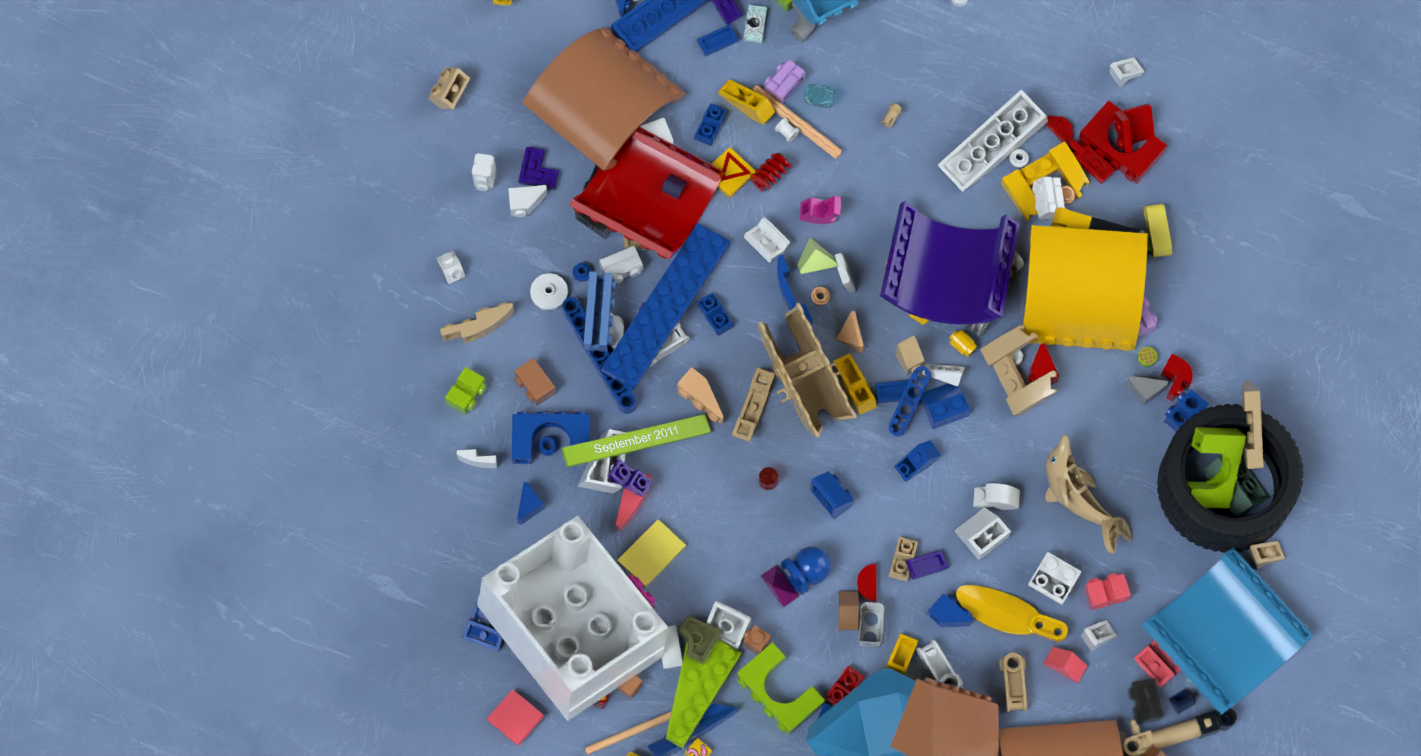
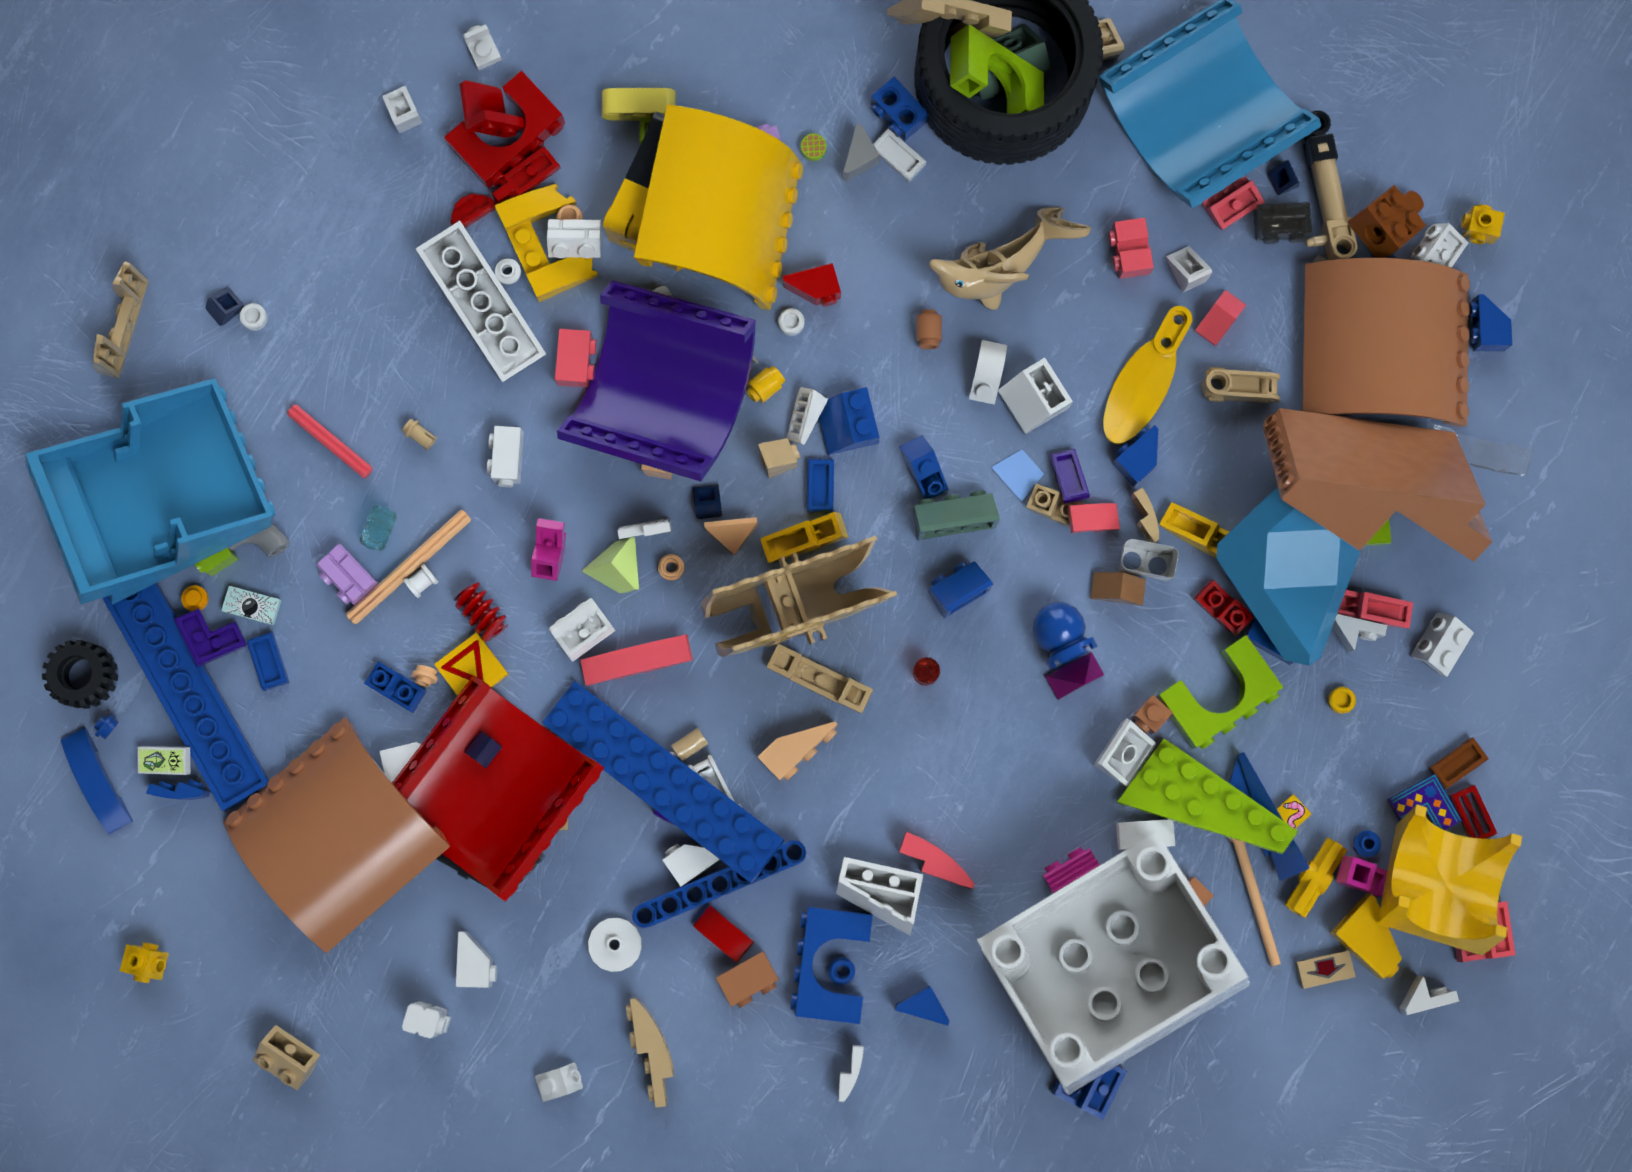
camera: 85 degrees left, 10 degrees up
(465, 391) = (749, 1079): lime brick -> none
(515, 717) = (1222, 1056): coral slope -> none
(532, 171) = (429, 949): dark purple tile -> none
(564, 362) = (723, 934): none -> red slope
(581, 277) = (601, 894): blue plate -> none
(598, 312) = (663, 877): medium blue brick -> none
(622, 264) = (591, 837): white brick -> none
(628, 478) = (911, 861): dark purple slope -> none
(635, 440) = (858, 848): lime tile -> none
(651, 553) = (1011, 843): light yellow tile -> none
(694, 323) = (689, 745): none -> tan piece
(700, 638) = (1142, 791): olive tile -> none
(715, 314) = (678, 715): blue slope -> none
(720, 141) = (424, 675): none -> light nougat plate
(747, 101) = (369, 631): yellow slope -> none
(750, 279) = (636, 660): none -> coral slope
(782, 273) = (629, 614): blue slope -> none
(867, 582) = (1083, 558): red tile -> none
(871, 315) = (707, 501): none -> dark blue slope
(877, 58) = (329, 441): none -> coral axle
(884, 174) = (506, 455): none -> white brick
(885, 484) = (955, 515): none -> sand green slope
(898, 585) = (1093, 517): none -> coral slope
(899, 624) = (1149, 523): none -> tan slope
(907, 400) = (841, 466): blue beam -> none
(924, 531) = (1018, 473): none -> light blue sticker
(937, 664) = (1213, 479): white piece -> none
(961, 210) = (573, 358): none -> coral brick
(998, 354) = (791, 338): tan wedge -> none
(1021, 452) = (928, 329): none -> nougat brick
(1054, 578) = (1110, 312): white slope -> none
(1151, 418) = (899, 155): none -> white tile
(1180, 373) = (845, 107): red brick -> none
(1182, 119) = (481, 46): none -> white bracket

